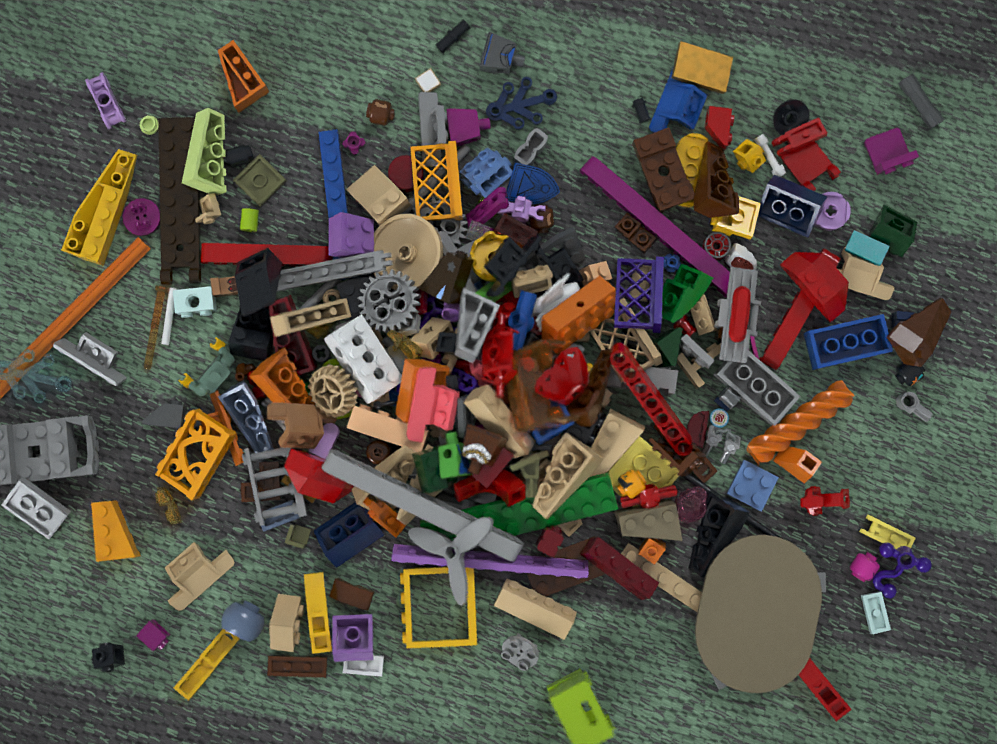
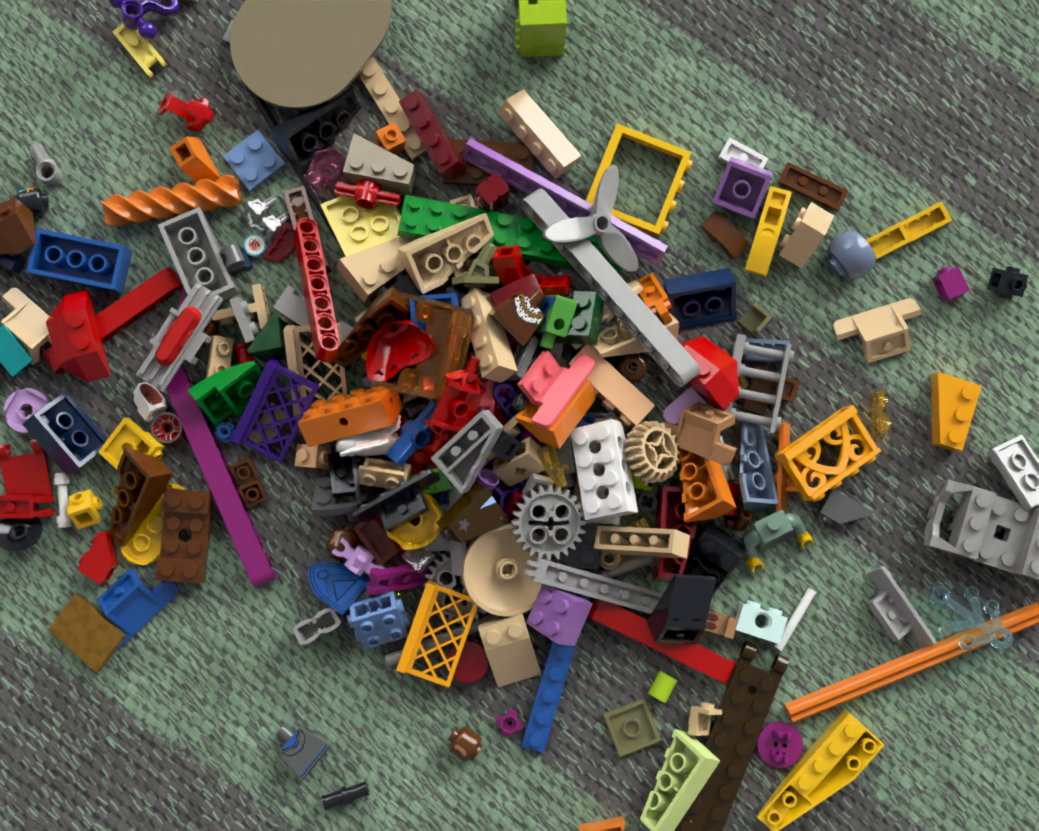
camera: 150 degrees left, 0 degrees up
(155, 325) = (814, 616): clear orange bar -> none
(239, 155) = (642, 765): black brick -> none
(428, 81) = (396, 755): white tile -> none
(432, 124) = (414, 702): light grey bracket -> none
(465, 125) = (377, 685): magenta torso -> none
(519, 105) = (308, 682): dark blue plant -> none
(520, 652) = (574, 97): light grey plate -> none
(631, 483) = (379, 213): light orange head -> none
(641, 110) = (177, 615): black pin -> none
(685, 467) = (318, 210): reddish brown plate -> none
(864, 566) = (179, 26): dark pink head -> none

